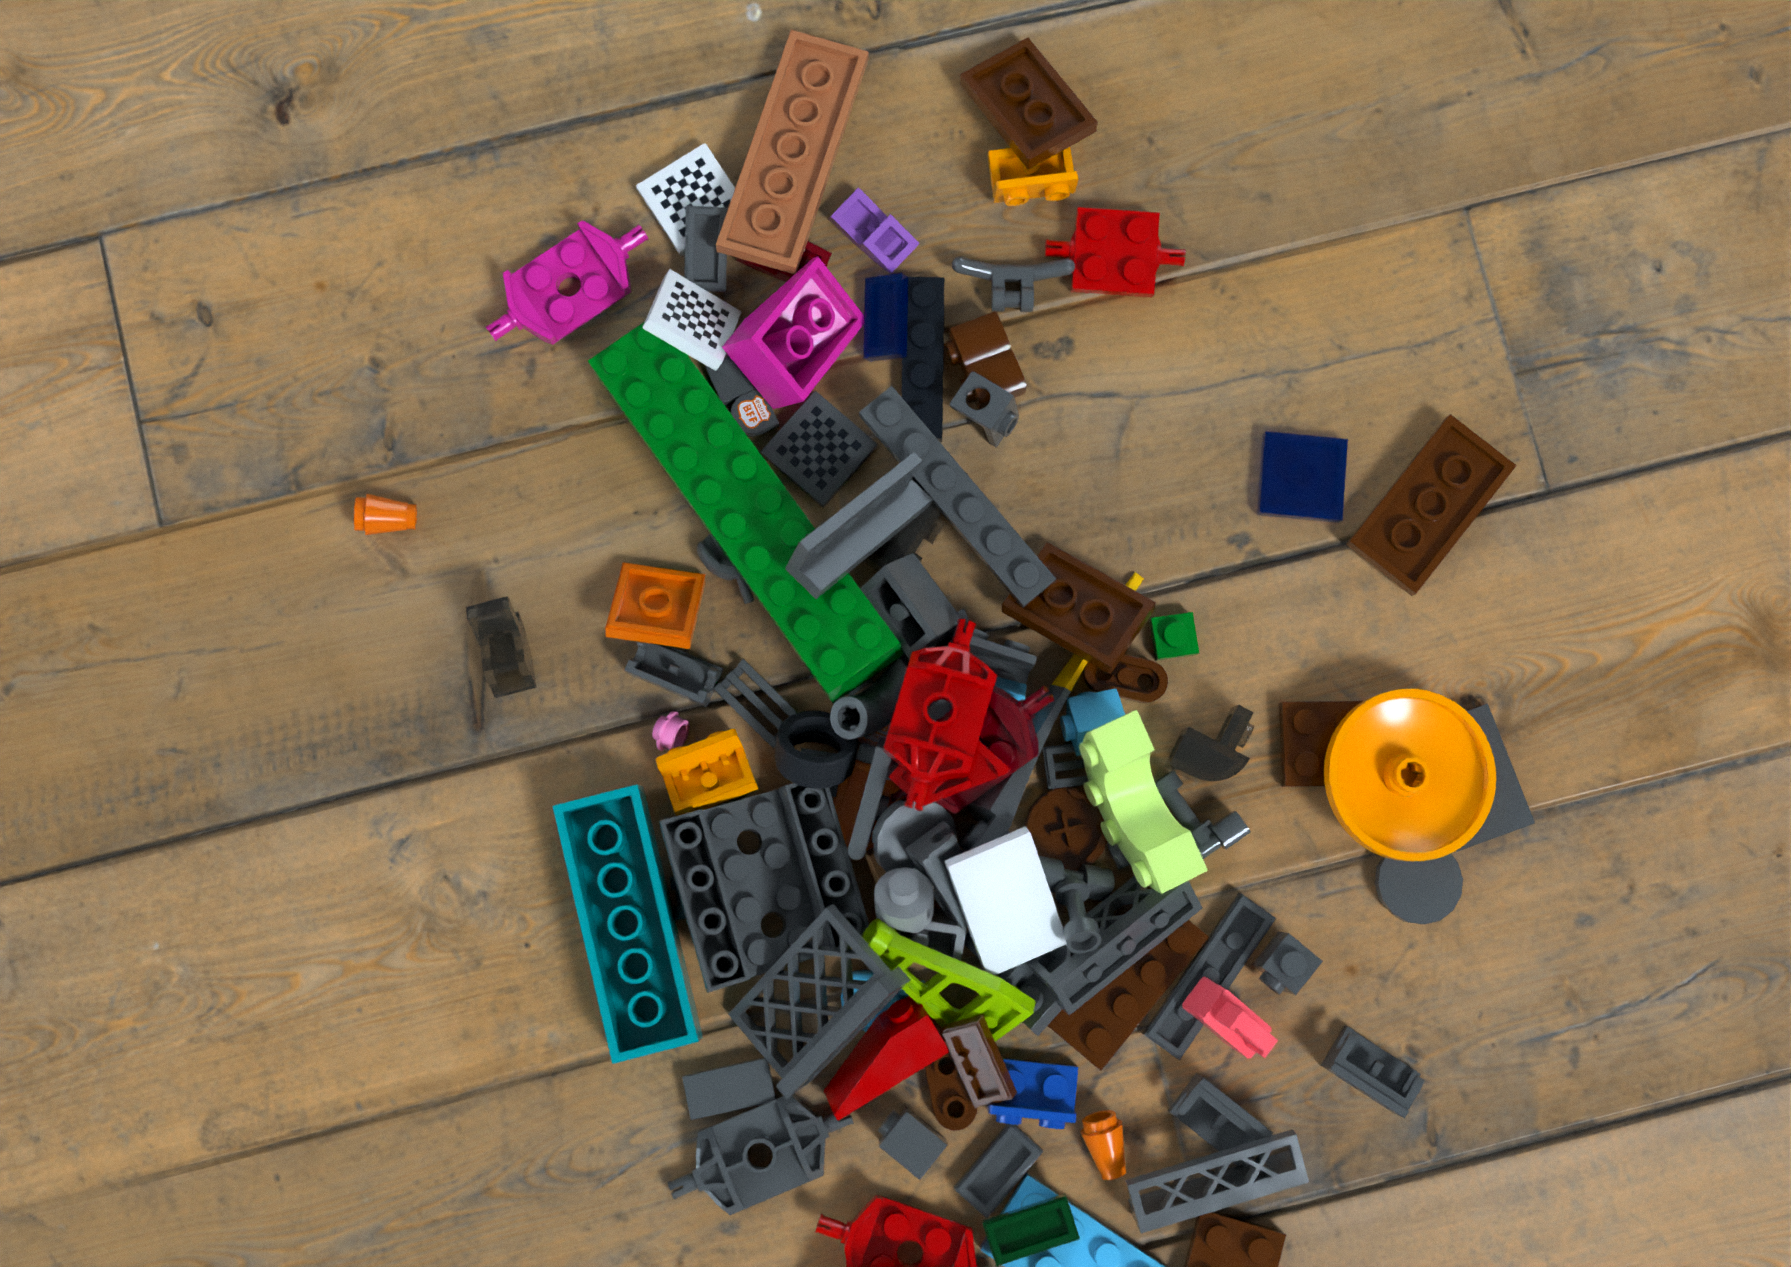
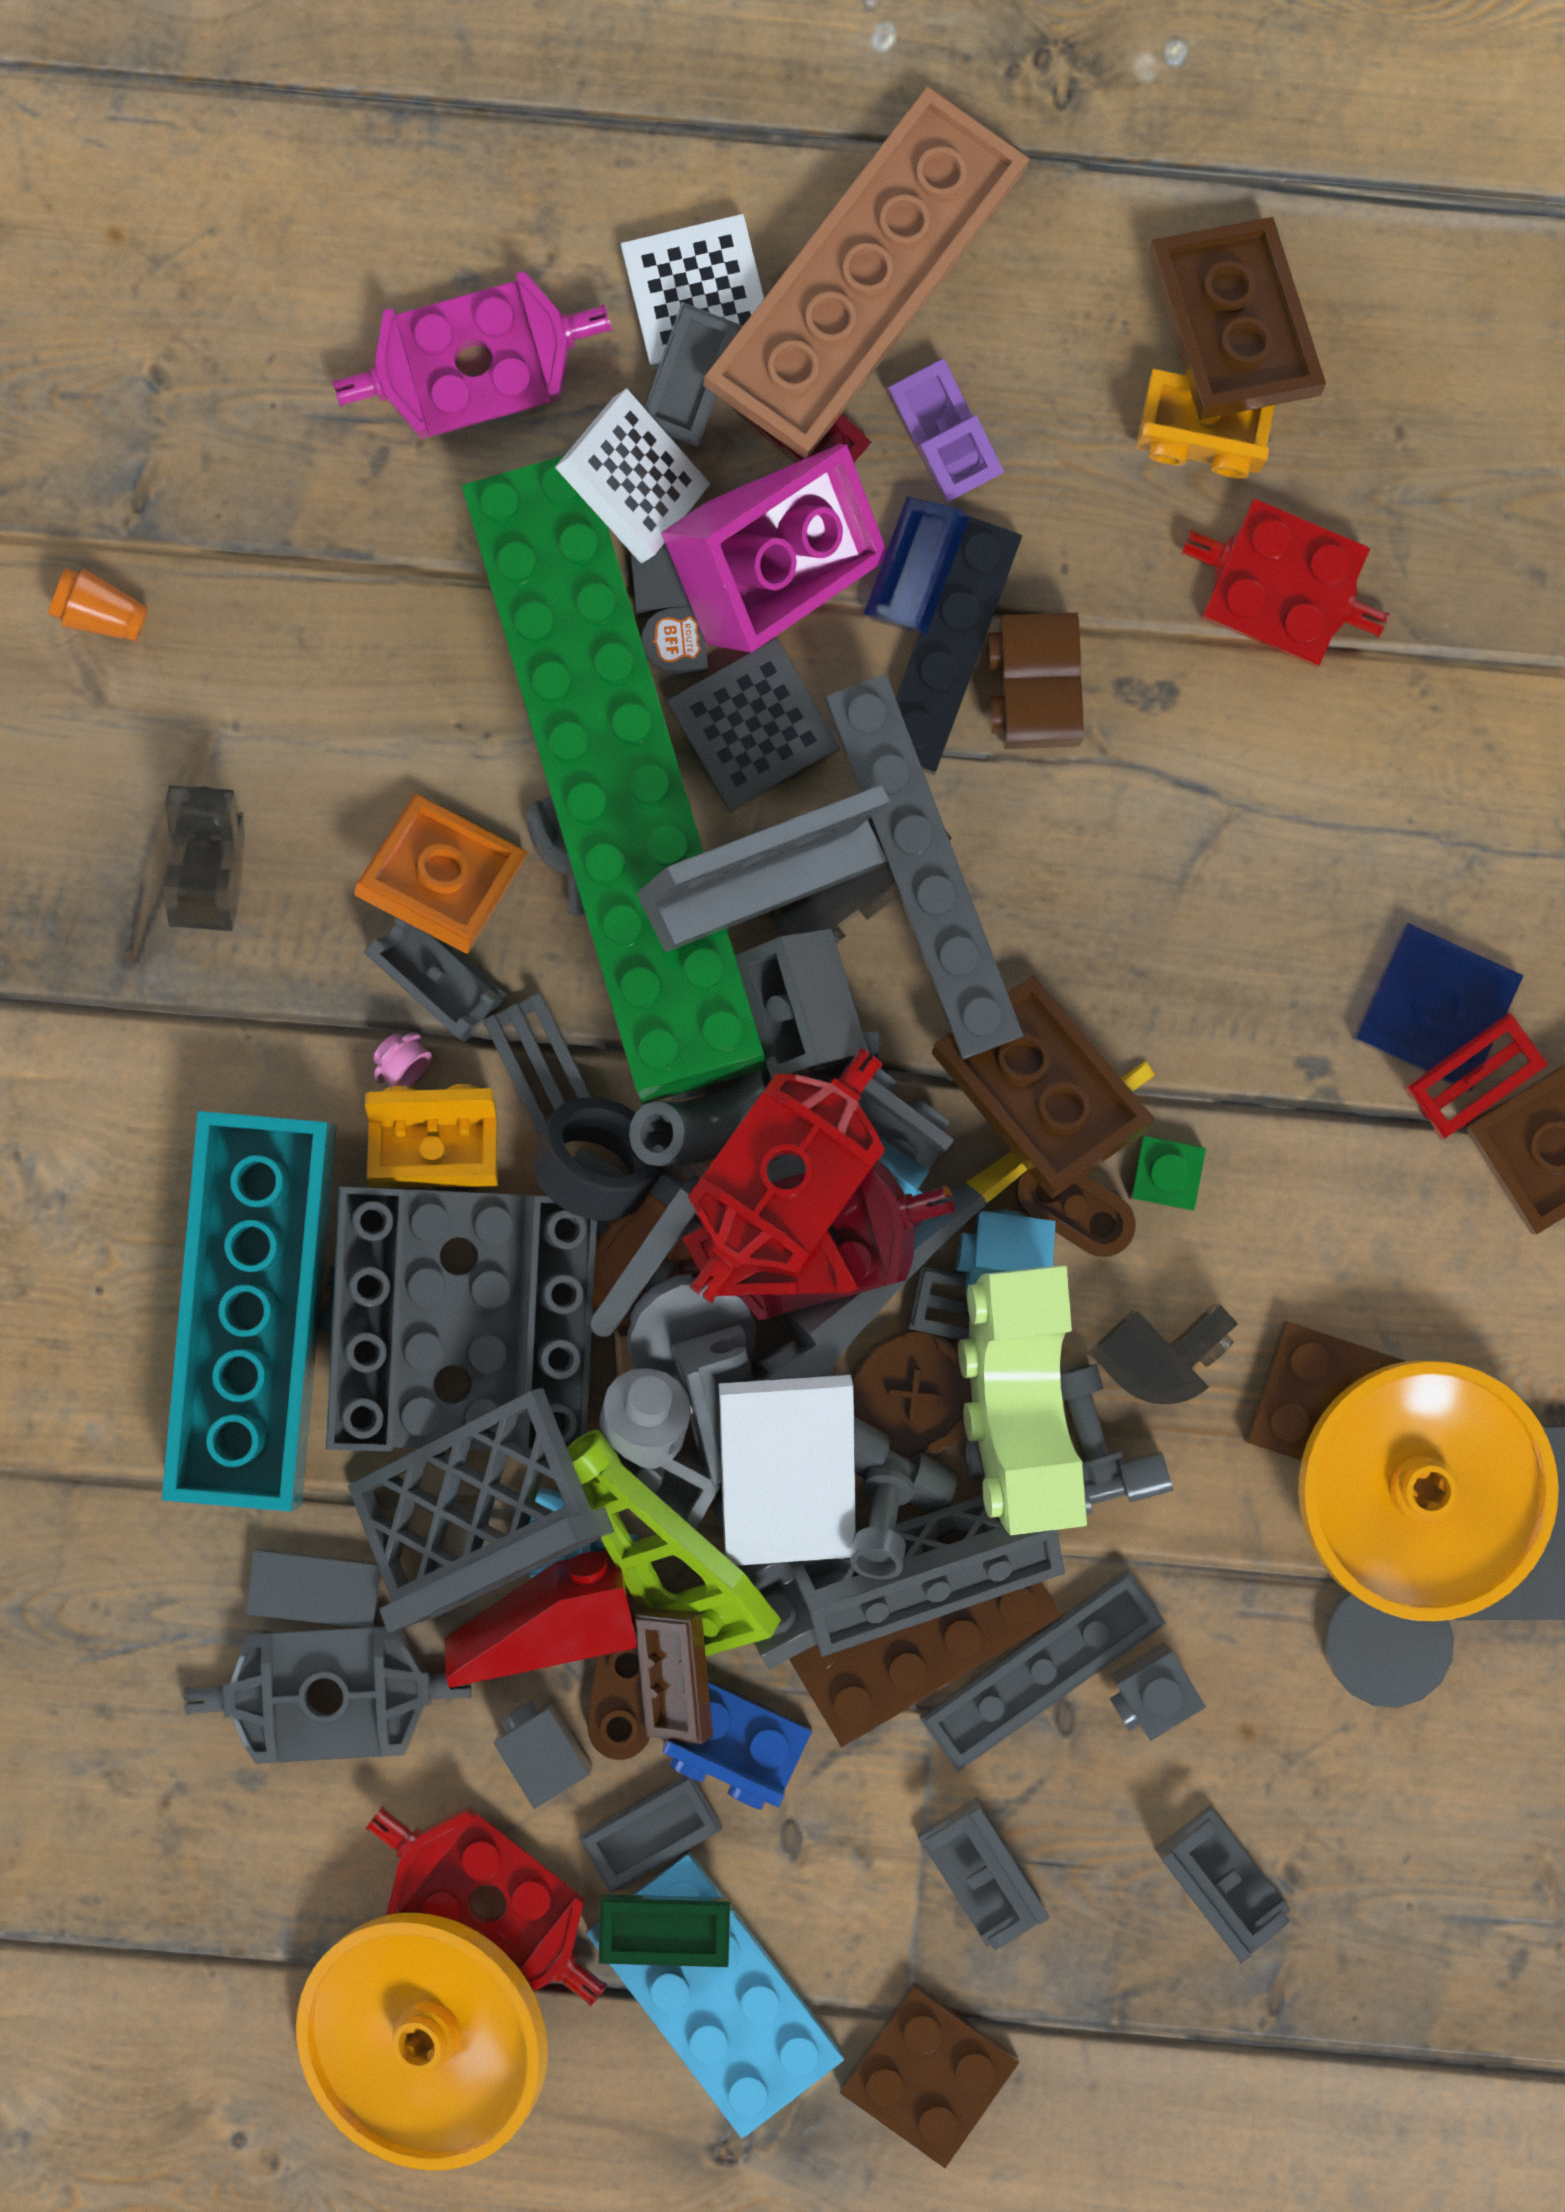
camera: 20 degrees right, 5 degrees up
(997, 417) = (1027, 769): dark grey bracket -> none
(1012, 273) = (1126, 562): dark grey piece -> none
(1105, 1142) = (812, 1848): orange cone -> none
(1218, 1187) = (947, 1966): dark grey fence -> none
(1229, 1019) = (1046, 1740): coral piece -> none
(1322, 537) = (1432, 1107): none -> red tile

